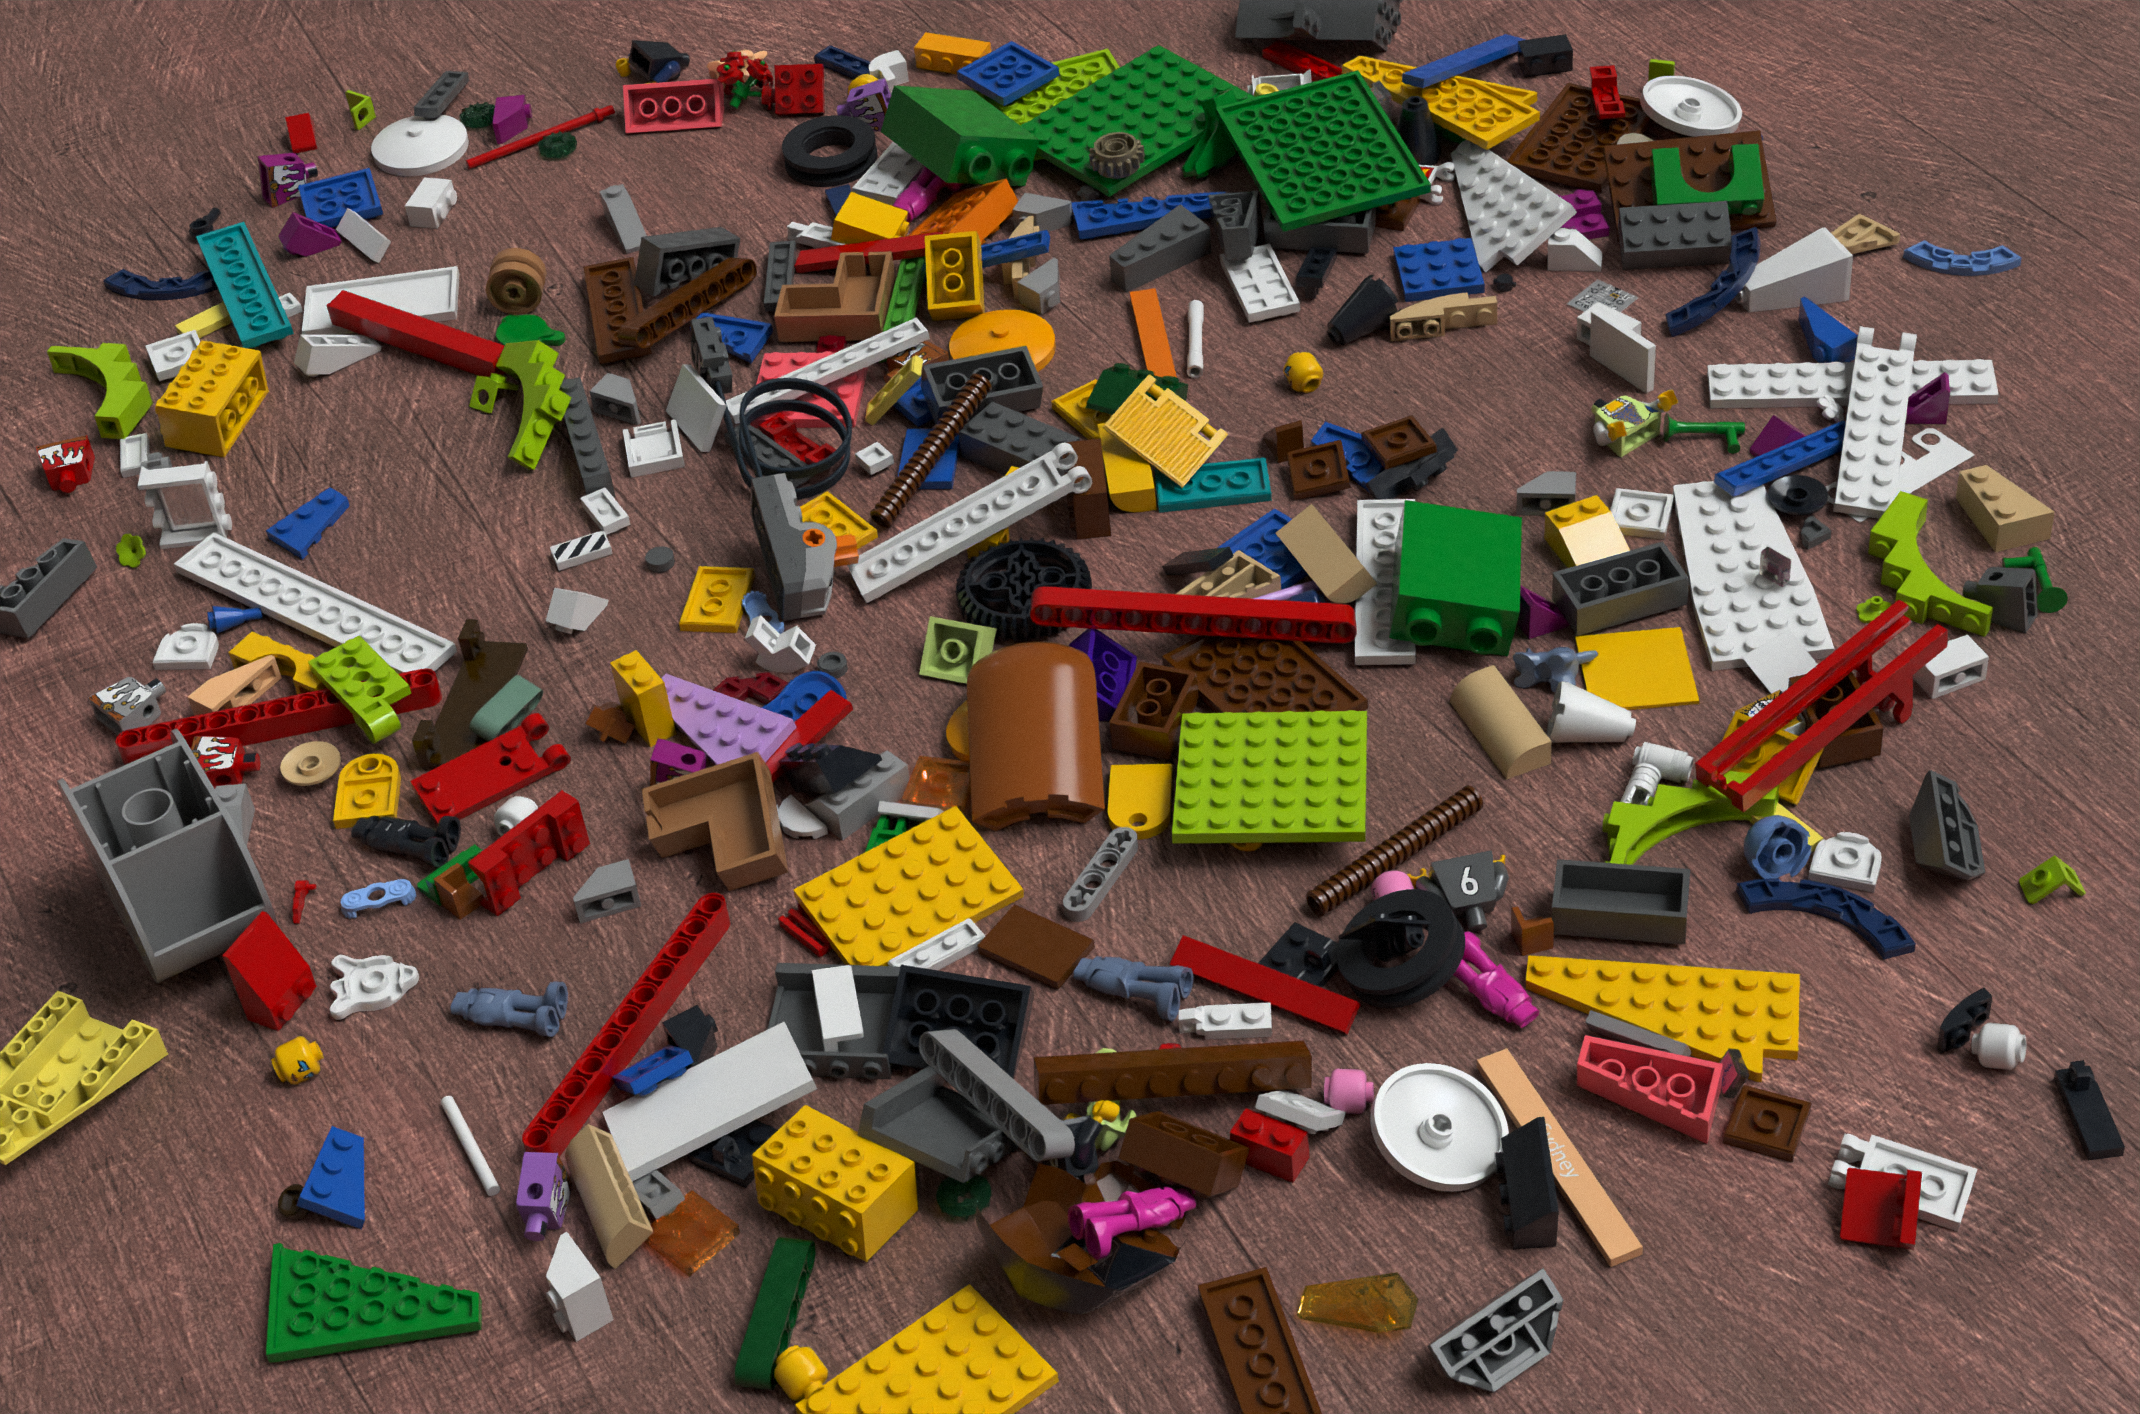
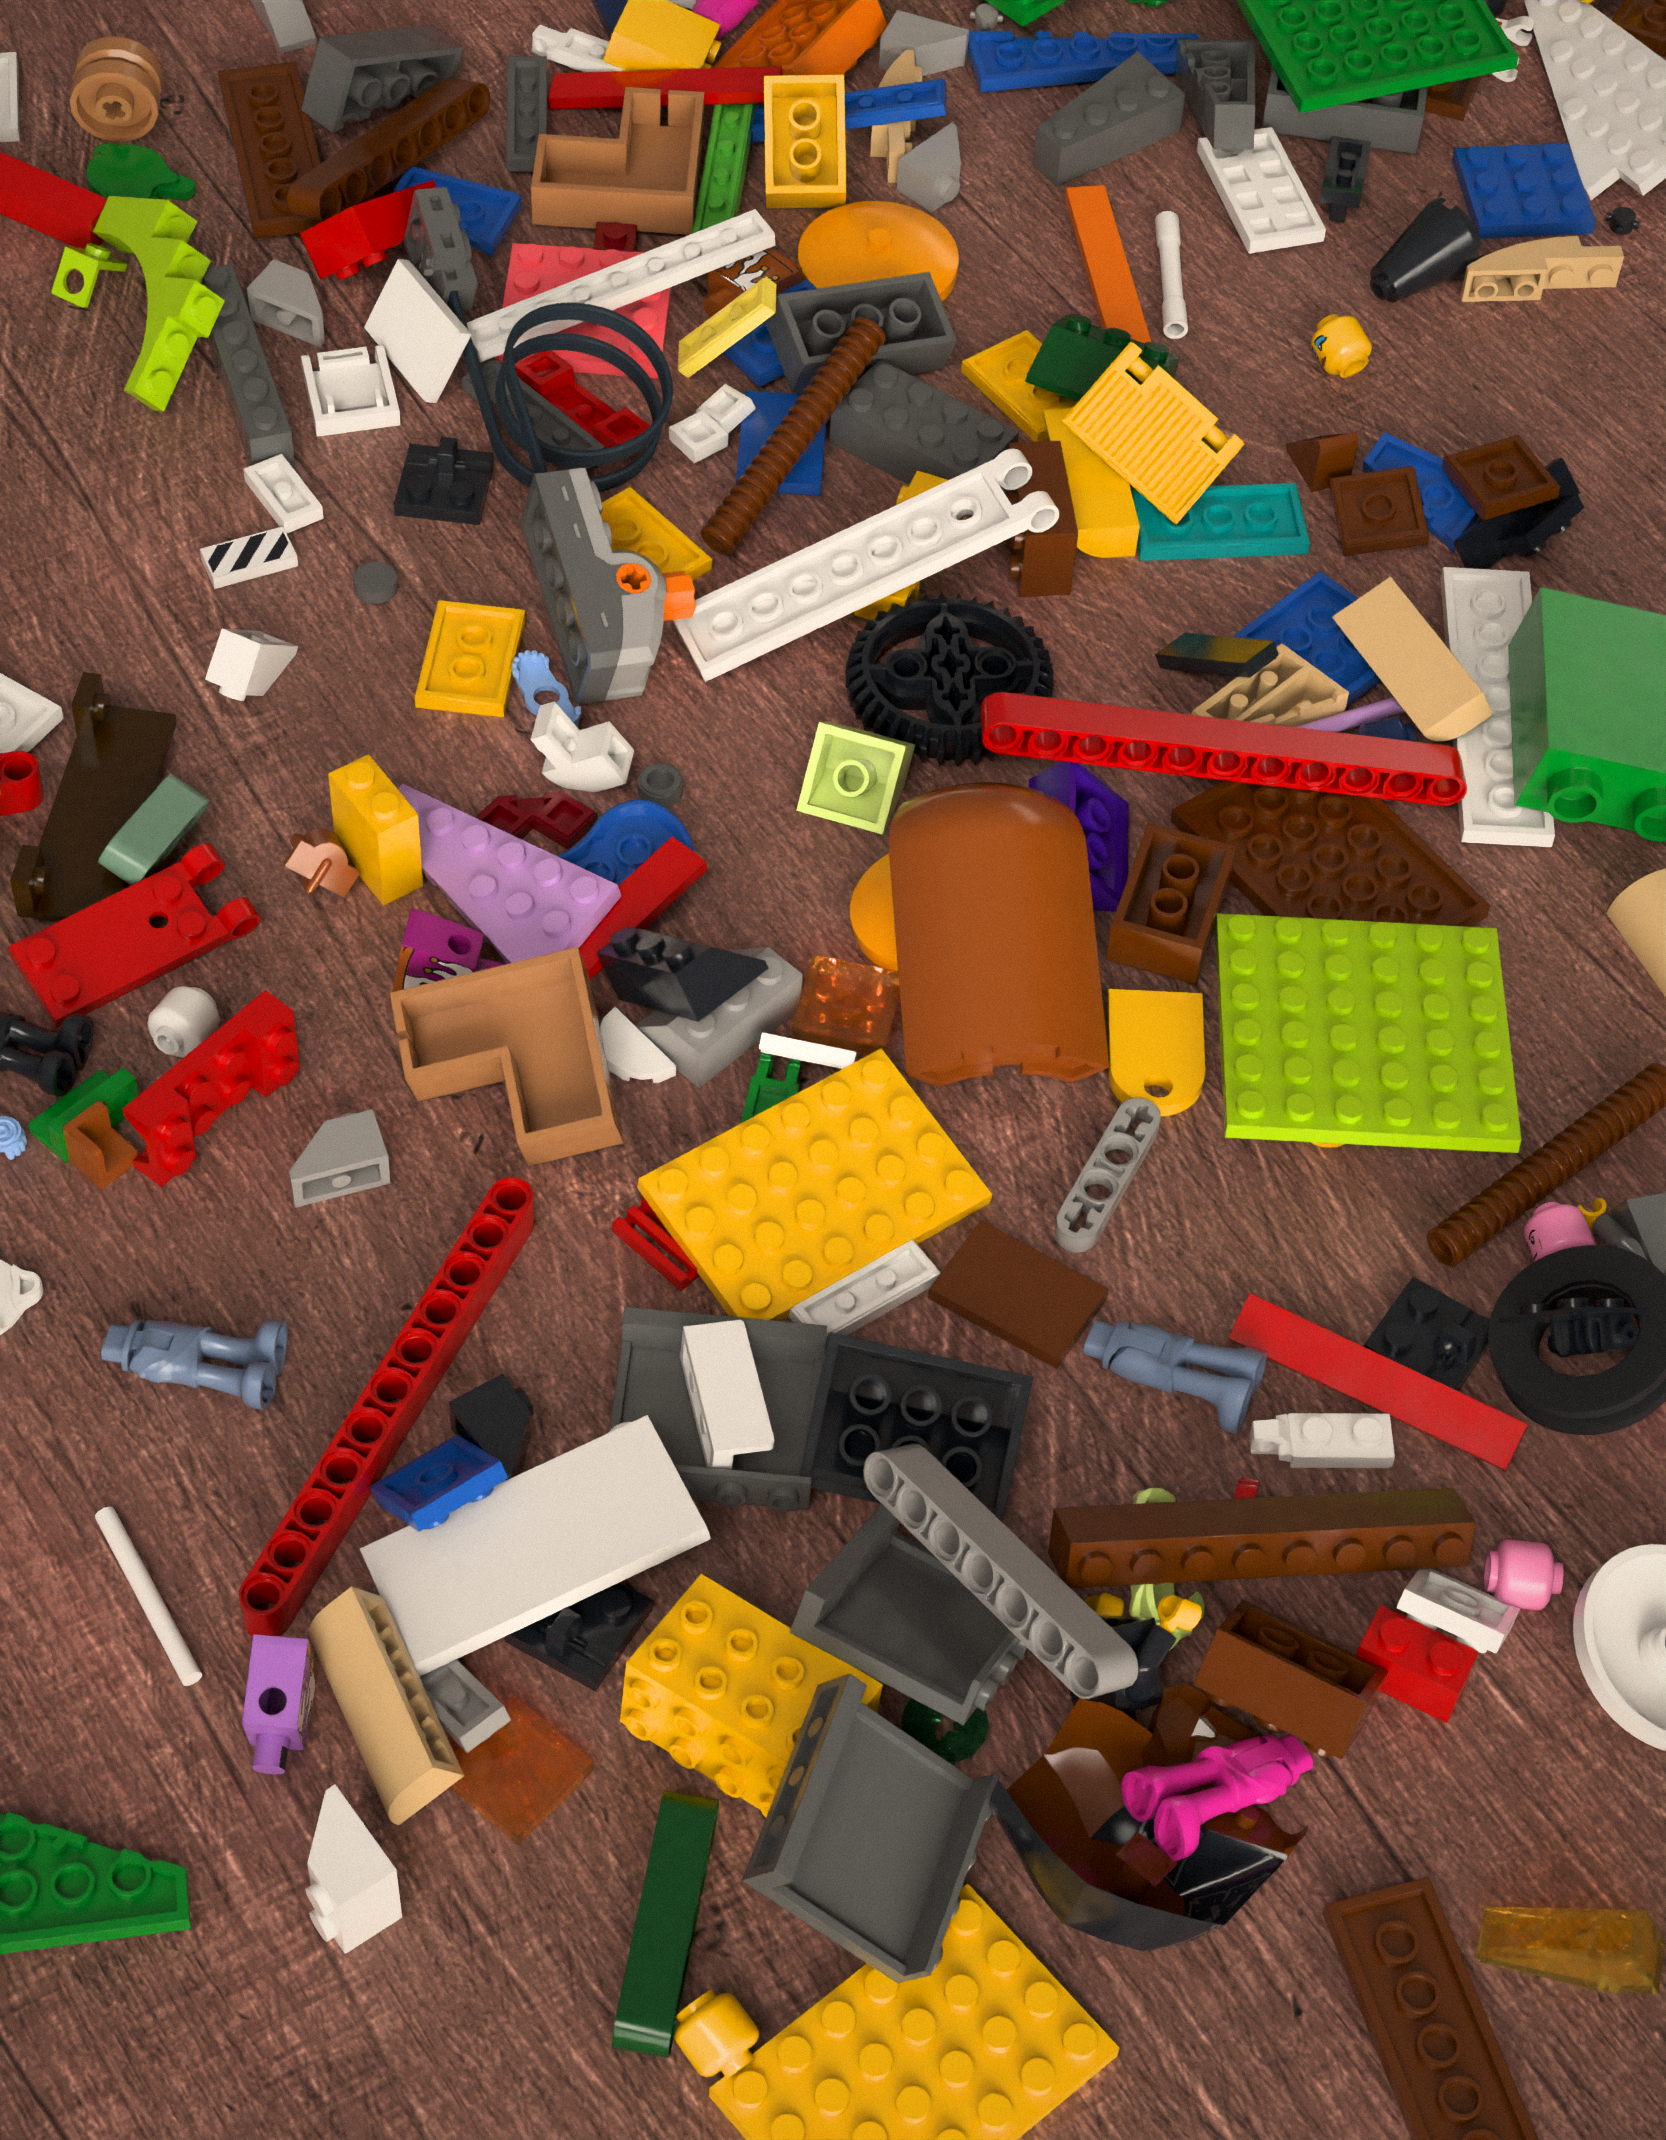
camera: 10 degrees left, 10 degrees up
(660, 354) = (360, 234): none -> red slope
(709, 498) = (444, 483): none -> black hinge
(894, 439) = (728, 407): none -> white tile
(897, 1247) = (870, 1835): none -> dark grey panel

